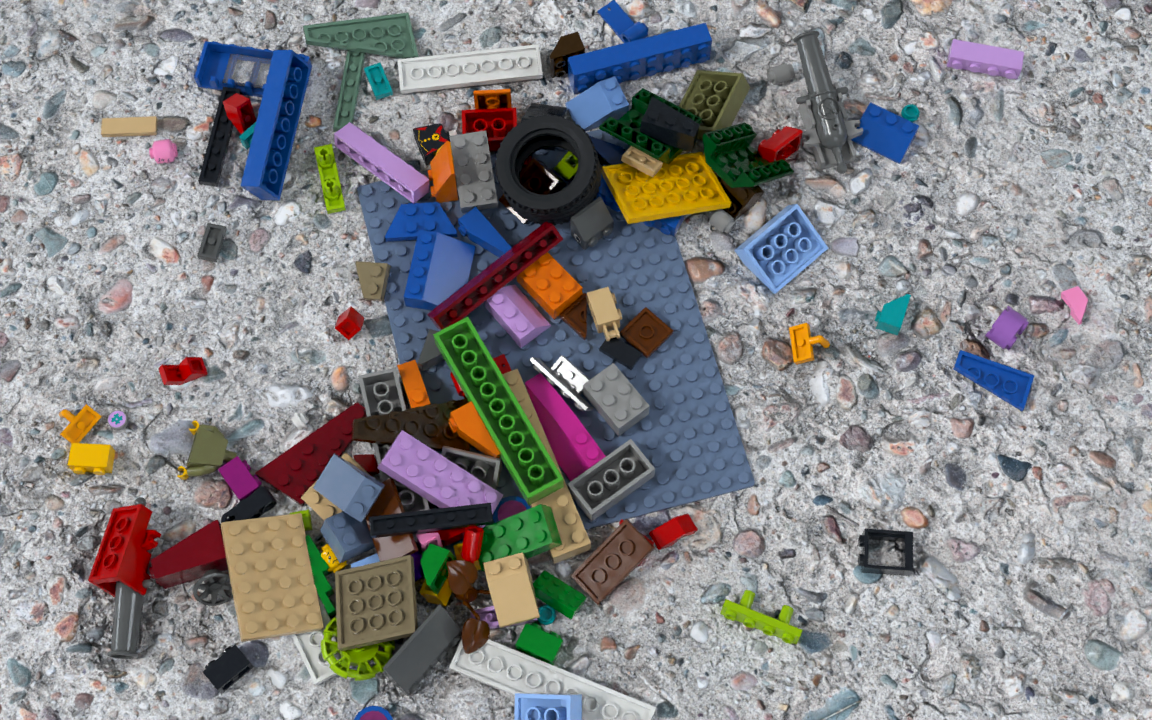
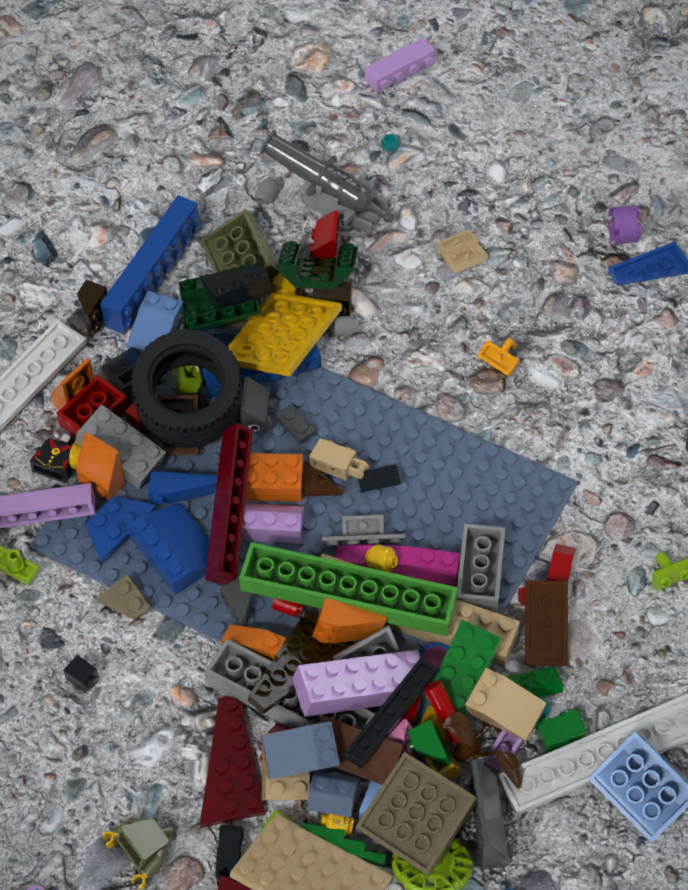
camera: 45 degrees left, 10 degrees down
(188, 370) = (49, 807): red slope -> none
(239, 479) = (195, 839): magenta brick -> none
(293, 303) = (81, 674): none -> black brick
(349, 323) = (144, 646): red panel -> none
(547, 410) = (381, 558): none -> yellow head
(609, 261) = (295, 424): none -> dark grey plate
(616, 399) = (416, 511): light grey brick -> none
(622, 24) = (105, 254): blue door -> none
(641, 161) = (245, 328): tan plate -> none
(646, 332) = (381, 447): reddish brown tile -> none
(782, 248) = (407, 307): light blue slope -> none
(869, 241) = (462, 251): none -> tan slope
(886, 133) = (392, 168): blue slope -> none
(892, 315) = (538, 285): teal slope -> none
(1076, 302) = (645, 171): bright pink slope -> none

